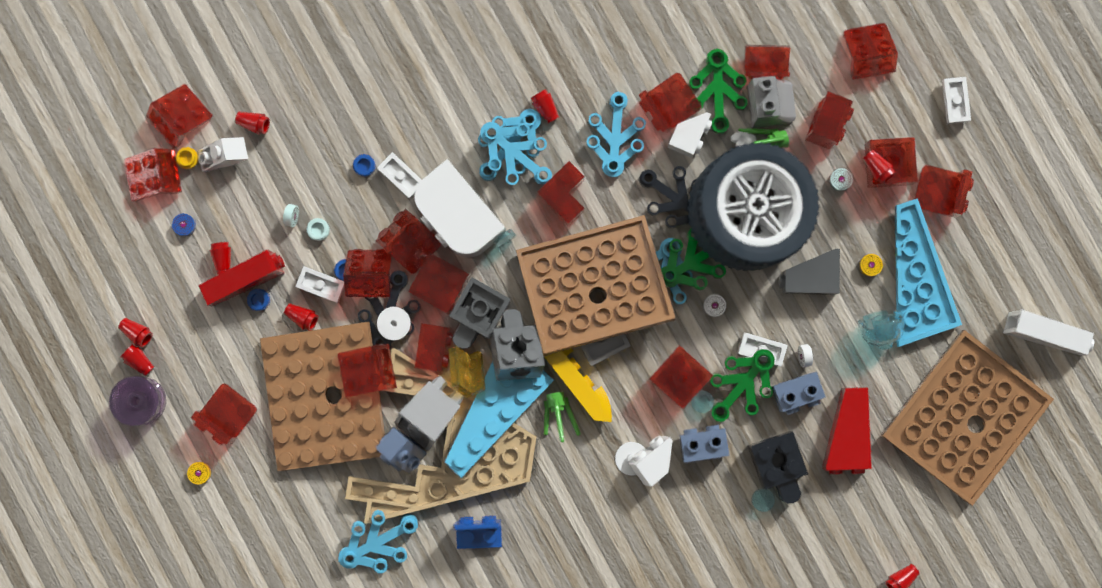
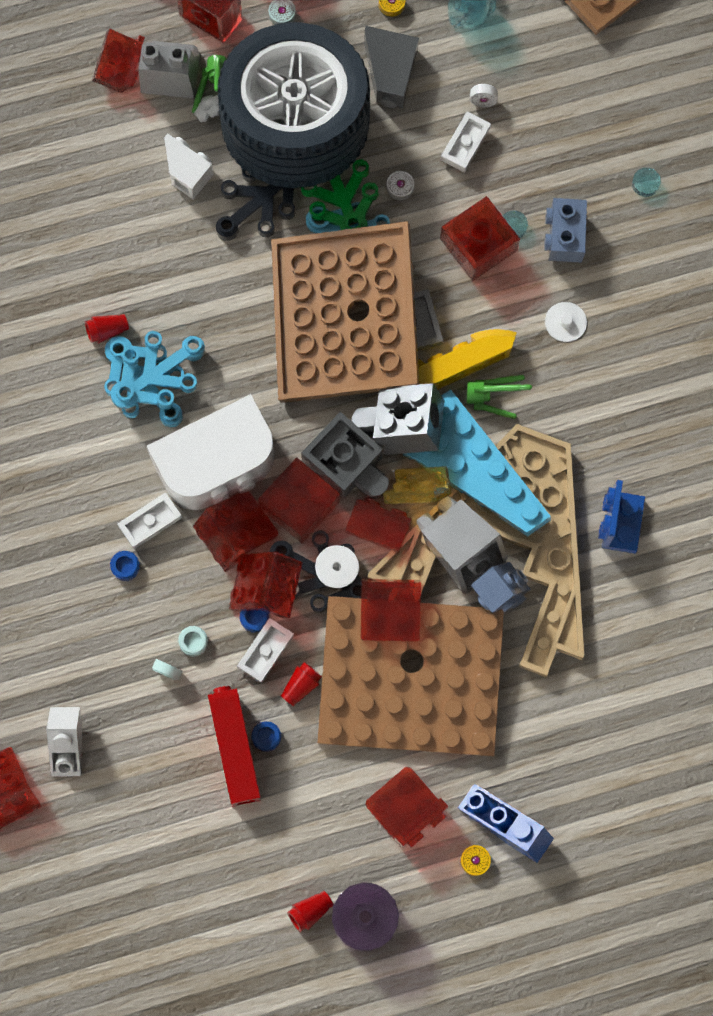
camera: 85 degrees left, 10 degrees down
(136, 333) = (272, 905): red cone -> none
(152, 173) = (67, 842): clear red bracket -> none
(184, 224) = (145, 813): blue tile -> none
(187, 158) = (57, 791): yellow plate -> none
(221, 256) = (199, 771): red cone -> none
(229, 490) = (506, 823): none -> blue slope
(255, 122) = (32, 693): red cone -> none
(375, 543) = (610, 650): medium azure plant -> none
(504, 238) = (262, 407): clear light blue tile -> none
(558, 191) = (222, 333): clear red brick -> none
(615, 138) = (167, 254): medium azure plant -> none
(654, 461) = (575, 291): white slope -> none
(670, 103) = (140, 179): clear red bracket -> none
(718, 87) = (136, 123): green plant -> none
(744, 381) = (501, 168): green plant -> none
(779, 465) = (614, 160): black brick -> none
(798, 392) = (526, 110): sand blue brick -> none
(850, 434) = (587, 65): red slope -> none

